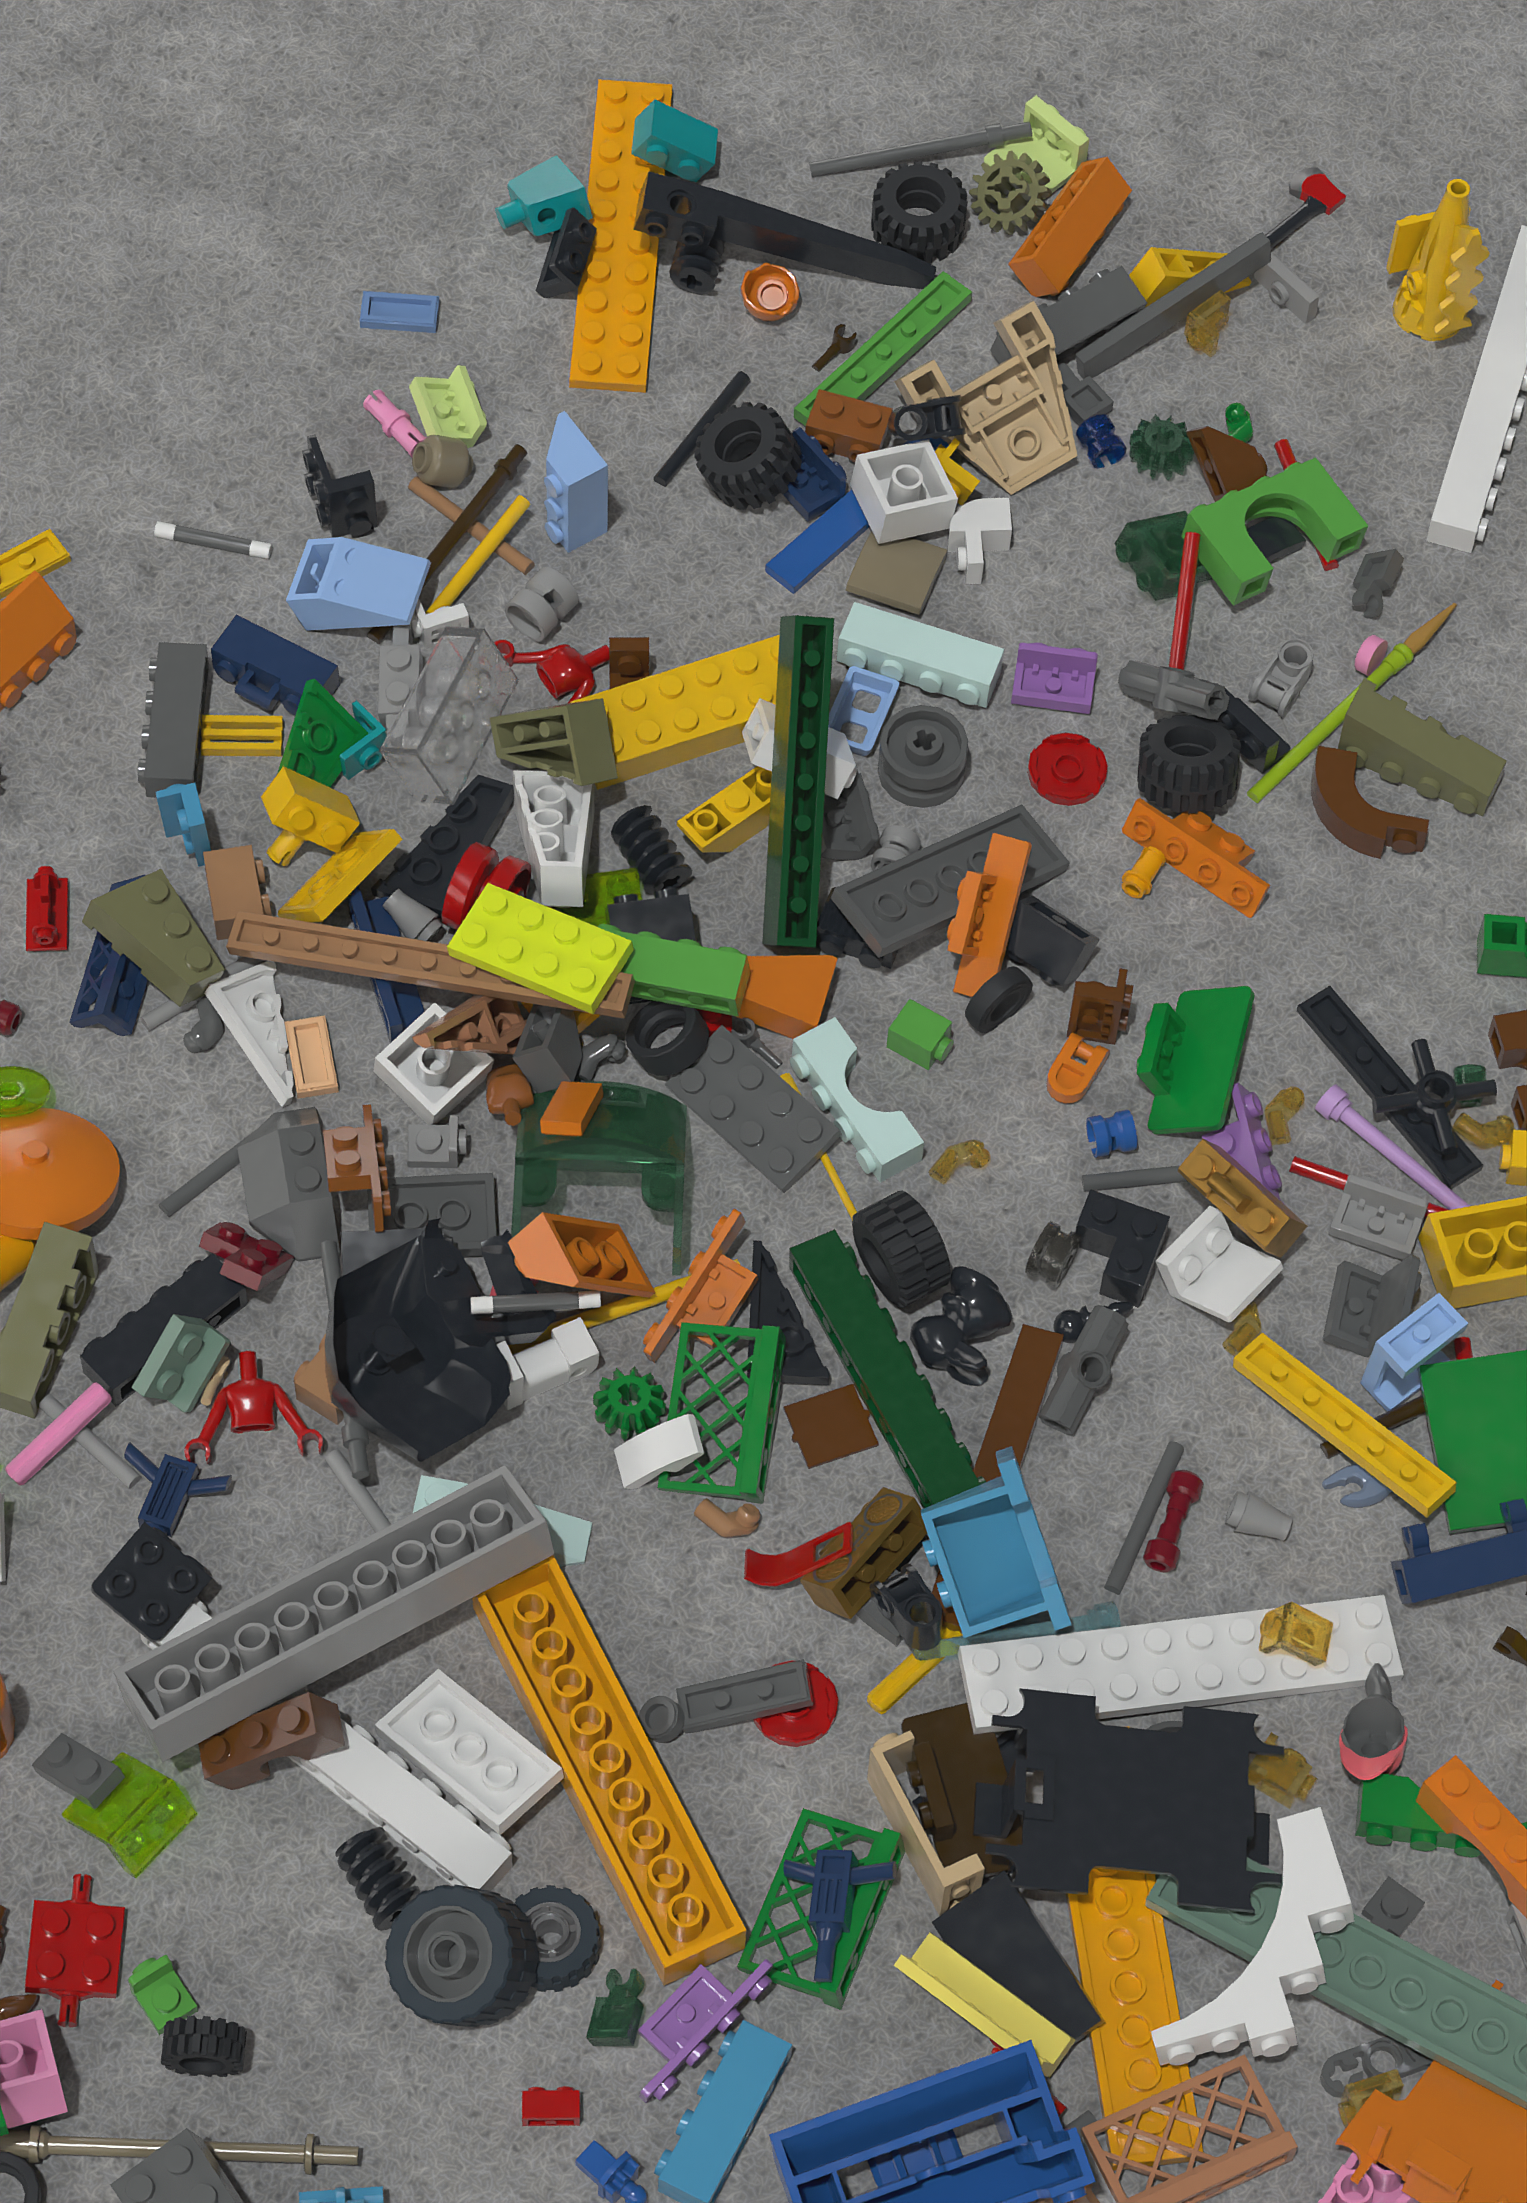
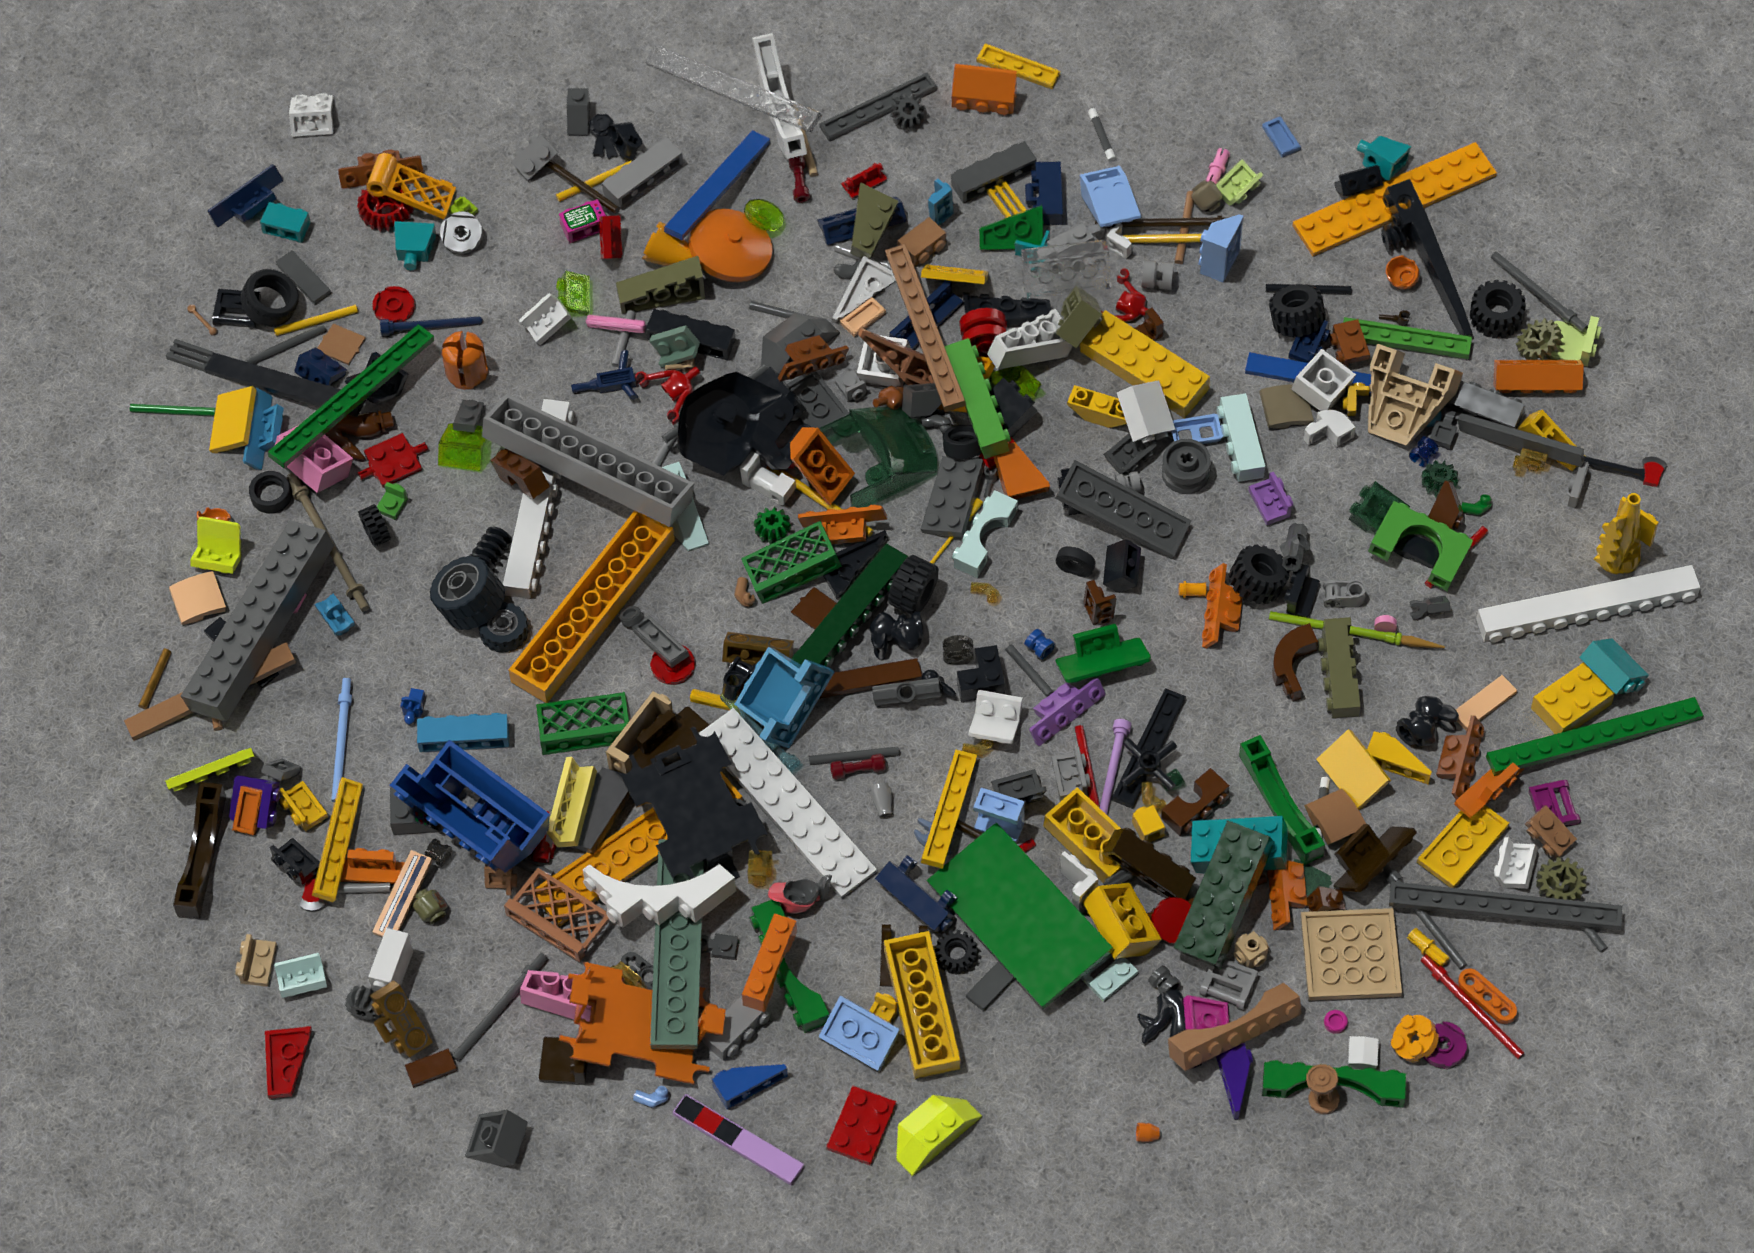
camera: 65 degrees right, 0 degrees up
(150, 1582) = (564, 391): black bracket -> none
(245, 1257) = (745, 345): dark red plate -> none
(306, 813) = (975, 243): yellow brick -> none
(344, 503) = (1151, 166): black bracket -> none
(412, 917) = (955, 313): light grey cone -> none
(469, 1751) = (566, 550): white plate -> none
(535, 1302) = (784, 455): dark grey bar -> none
(540, 948) = (954, 359): neon yellow plate -> none
(551, 2107) = (429, 667): red piece -> none
(571, 1108) = (892, 420): orange tile -> none
(618, 2016) = (485, 669): clear green plate -> none
(649, 850) = (1057, 386): black piece -> none
(659, 1450) = (754, 546): white slope -> none
(674, 141) = (1456, 188): teal brick -> none
(690, 2017) = (498, 697): medium lavender bracket -> none
(790, 1565) = (729, 621): red piece -> none
(798, 781) = (1113, 412): dark green brick -> none
(833, 1897) = (581, 718): dark blue piece -> none
(920, 1035) = (1037, 541): bright green brick -> none
(934, 418) = (1367, 369): black piece -> none
(987, 912) = (1110, 527): orange bracket -> none
(1066, 780) = (1234, 533): red tile -> none
(1069, 1079) = (1057, 613): orange plate -> none
(1184, 600) = (1347, 530): red bar -> none
(1242, 1198) = (1032, 706): pearl gold piece -> none
(1280, 1111) = (1101, 708): clear yellow arm -> none
(1296, 1632) = (825, 836): clear yellow bracket -> none

